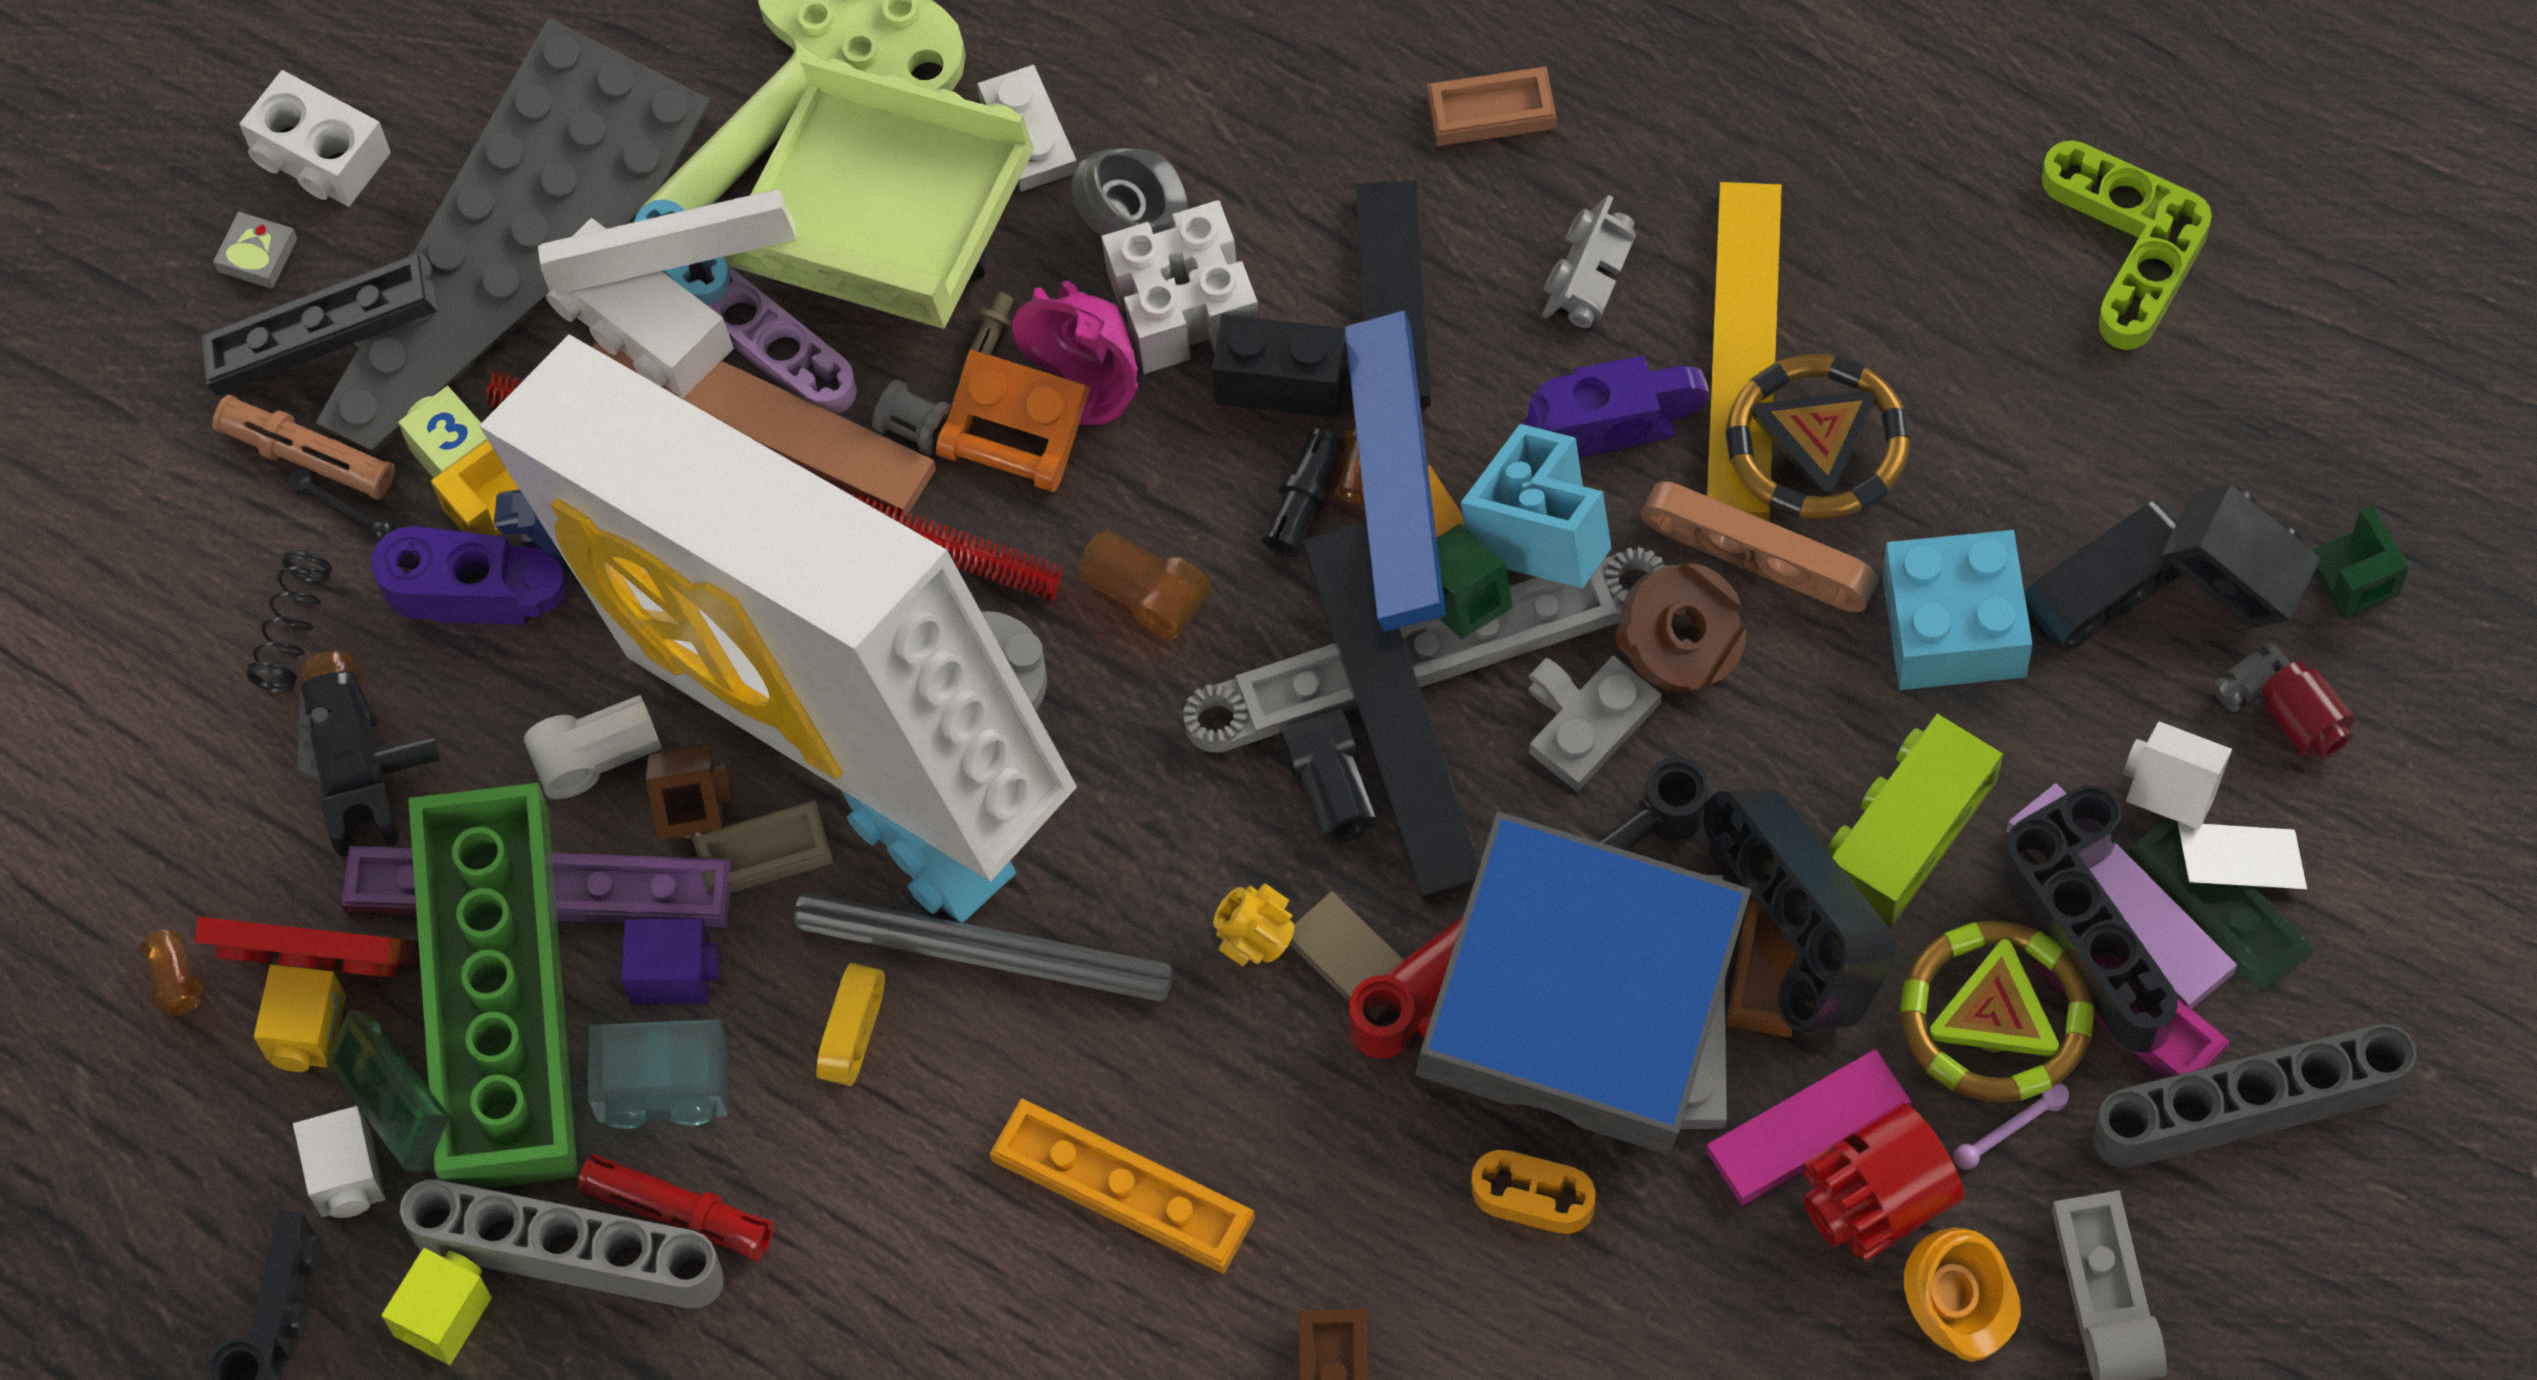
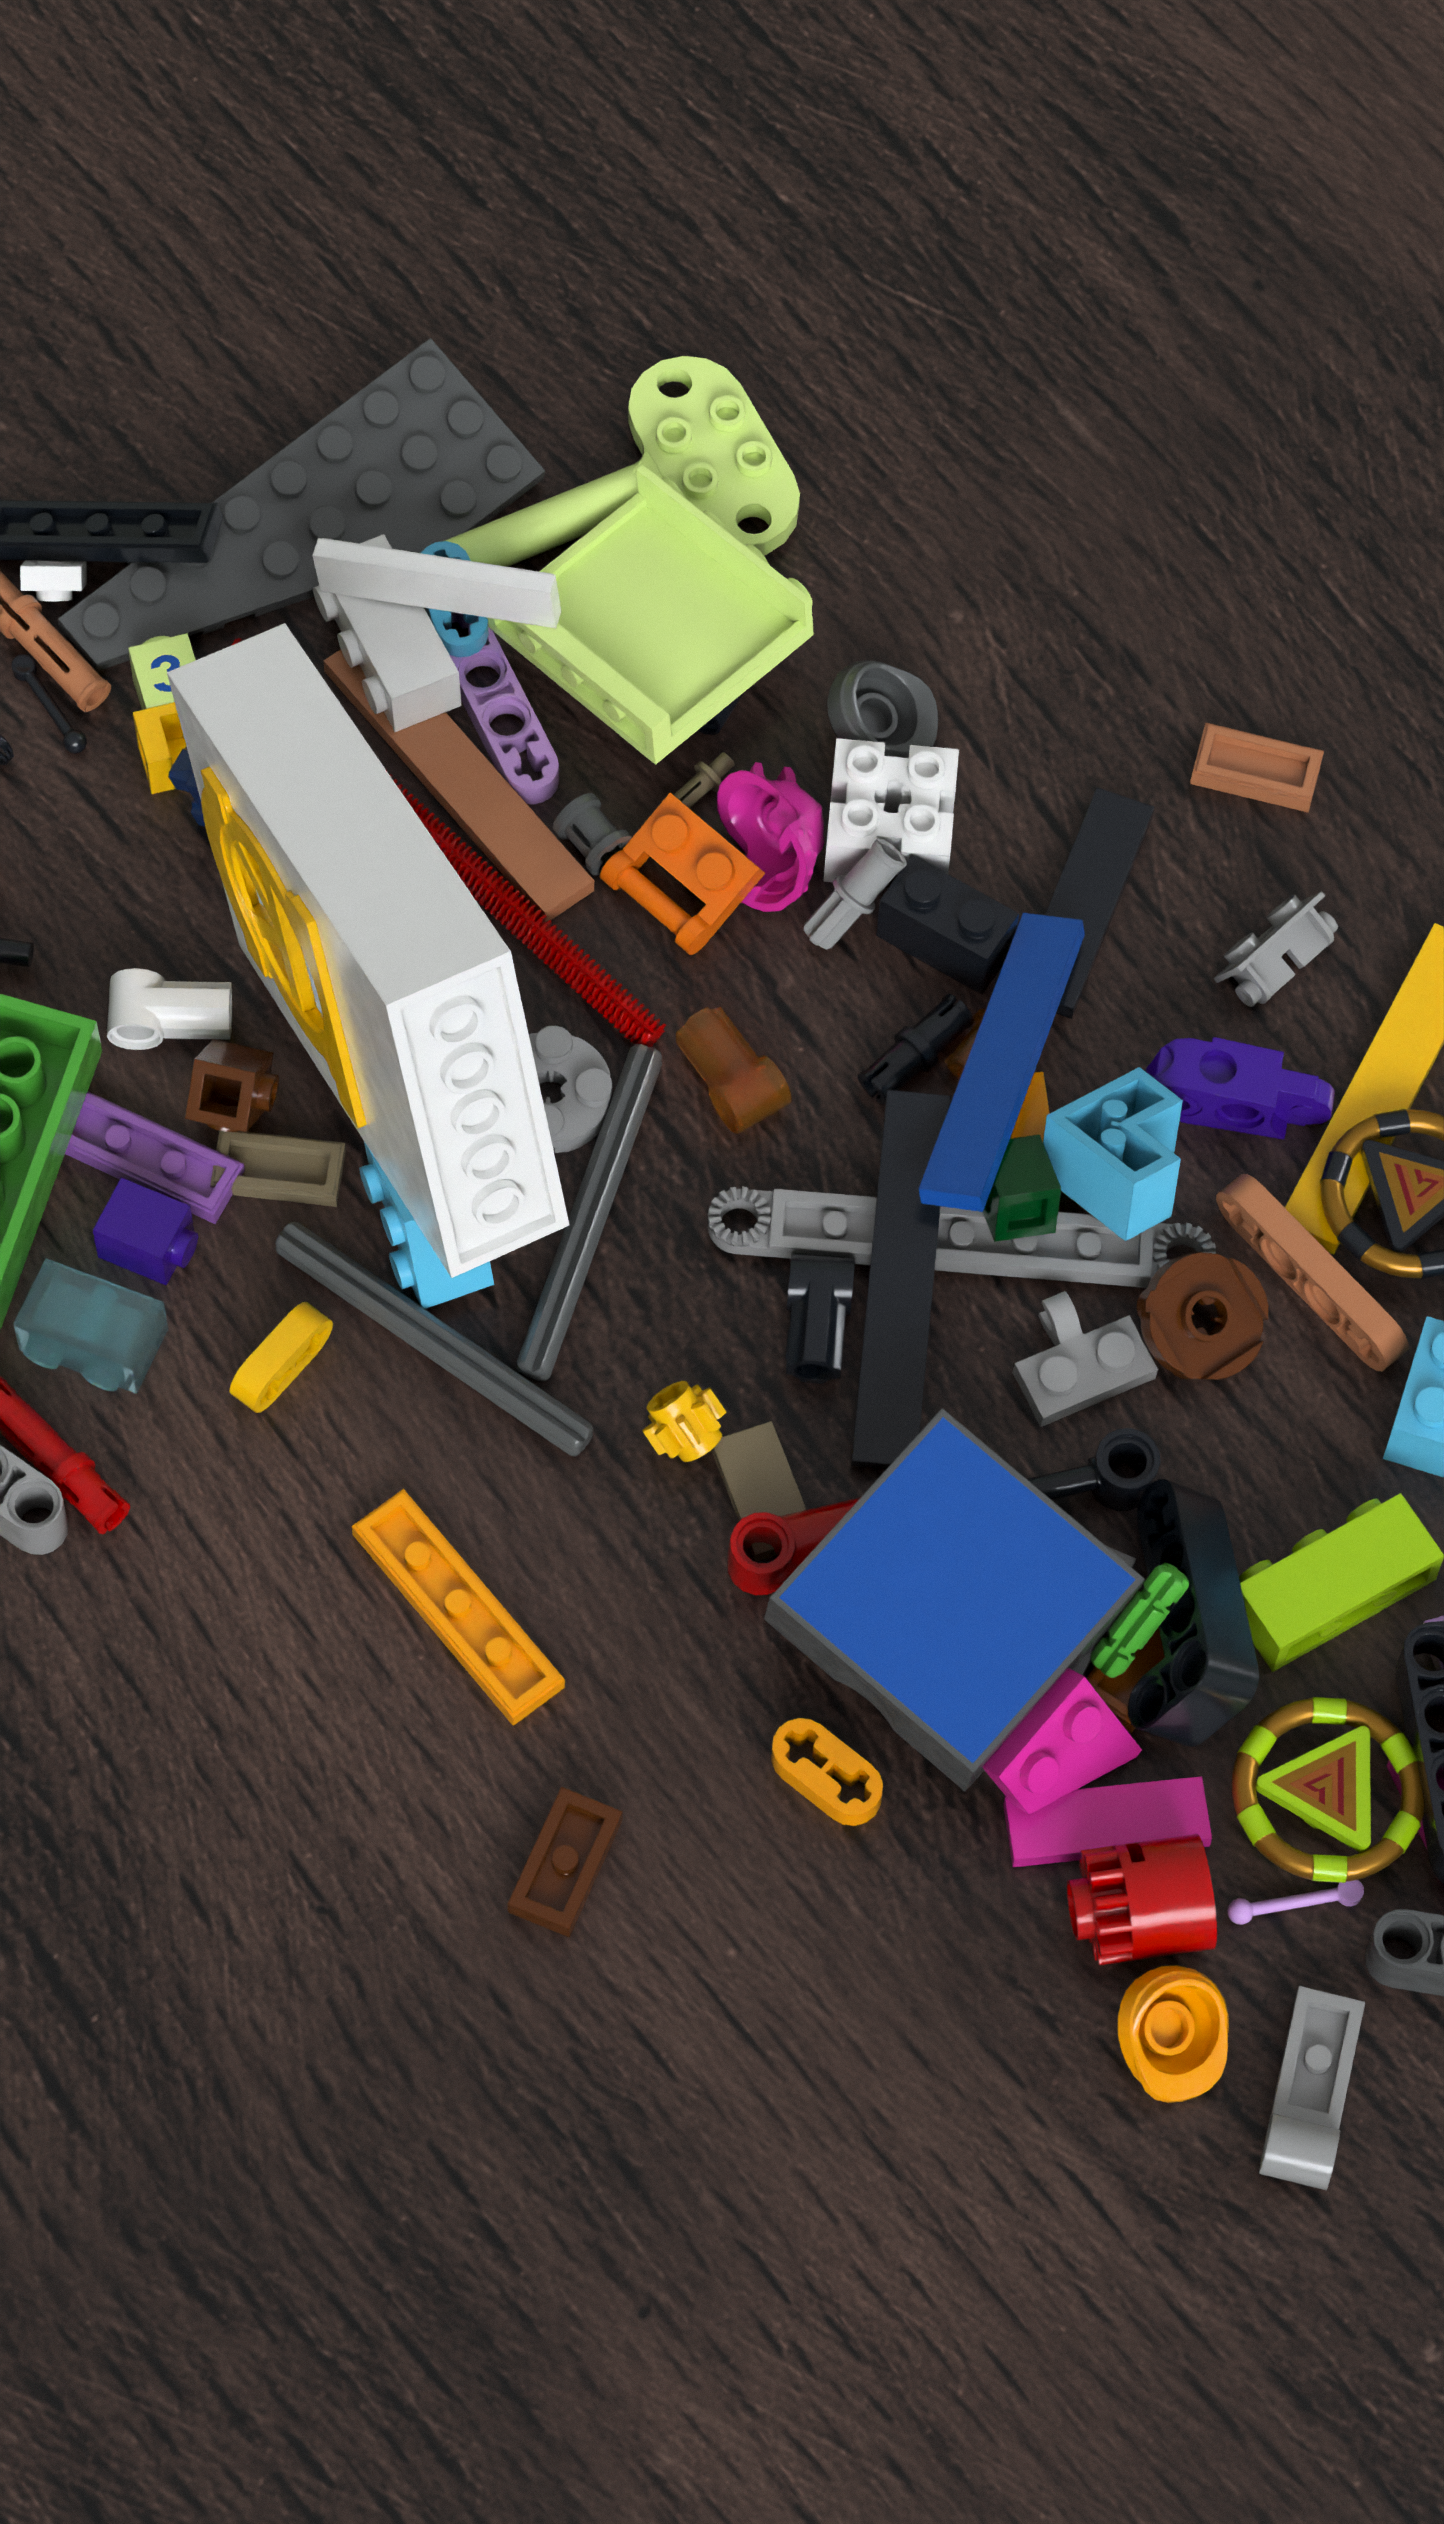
camera: 15 degrees right, 0 degrees up
(255, 250) = (78, 443): tile -> none
(293, 387) = (53, 578): none -> white plate
(321, 130) = (184, 359): white brick -> none
(517, 582) = (166, 839): dark purple piece -> none
(1027, 96) = (831, 590): white plate -> none
(1072, 744) = (589, 1213): none -> dark grey axle
(1183, 373) = (854, 894): none -> light grey axle
(1739, 1076) = (1060, 1746): none -> dark pink wing
(1758, 929) = (1139, 1620): none -> bright green axle

